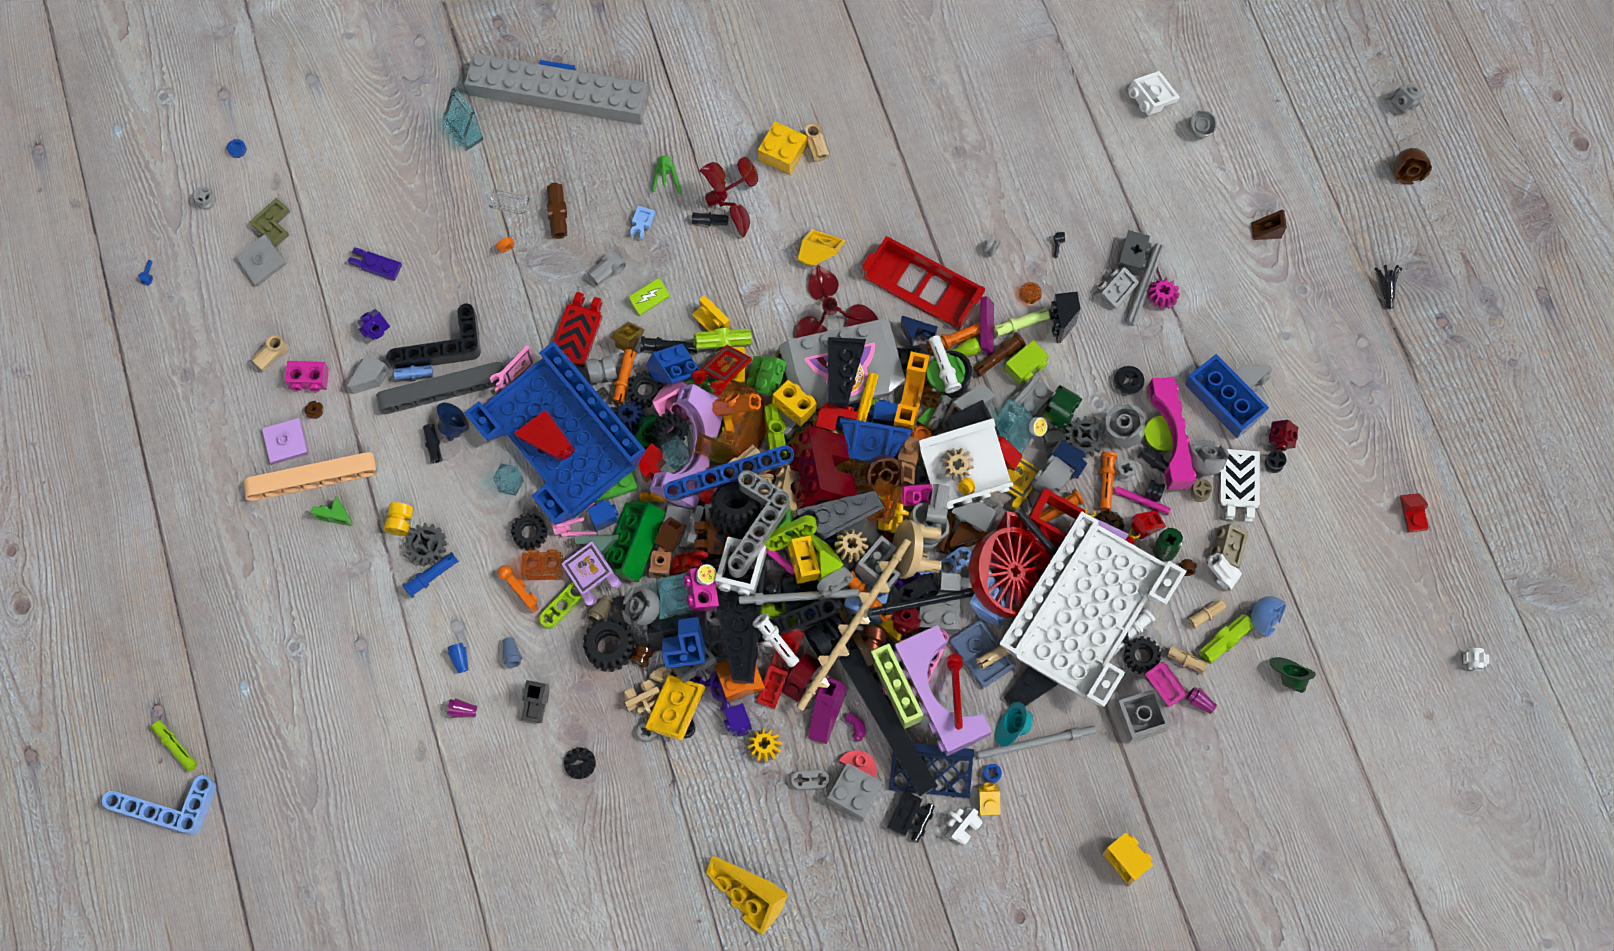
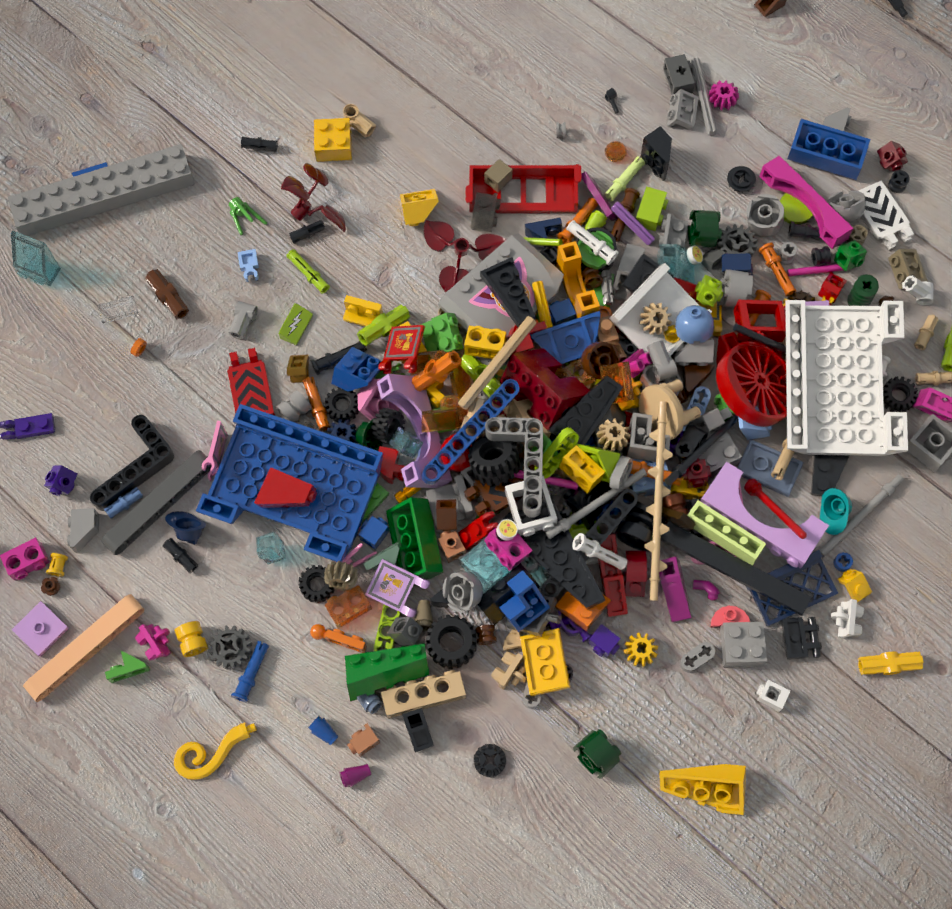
camera: 30 degrees left, 0 degrees up
(329, 394) = (57, 564): none -> yellow bush
(370, 503) = (157, 640): none -> dark pink hips
(386, 619) = (233, 736): none -> yellow plant
(485, 685) = (363, 741): none -> nougat brick
(538, 634) = (384, 669): none -> green wedge
(549, 535) = (341, 575): none -> dark tan gear
(575, 613) = (405, 631): none -> dark grey brick
(584, 689) = (435, 698): none -> tan brick
(669, 809) = (597, 753): none -> dark green brick
(691, 270) = (320, 284): none -> lime pin
(717, 118) = (259, 144): none -> black pin
(789, 425) = (496, 363): none -> tan axle
(852, 841) = (780, 695): none -> white brick
(875, 285) = (484, 212): none -> clear smoke bracket
(906, 339) = (544, 241): none -> lime bar
(907, 258) = (498, 175): none -> dark tan panel
(974, 884) = (890, 663): none -> yellow piece
(986, 488) = (694, 324): none -> medium blue cylinder
(1000, 367) = (632, 223): none -> medium lavender axle
(1025, 465) = (709, 291): none -> lime brick
(1181, 505) = (850, 255): none -> green brick

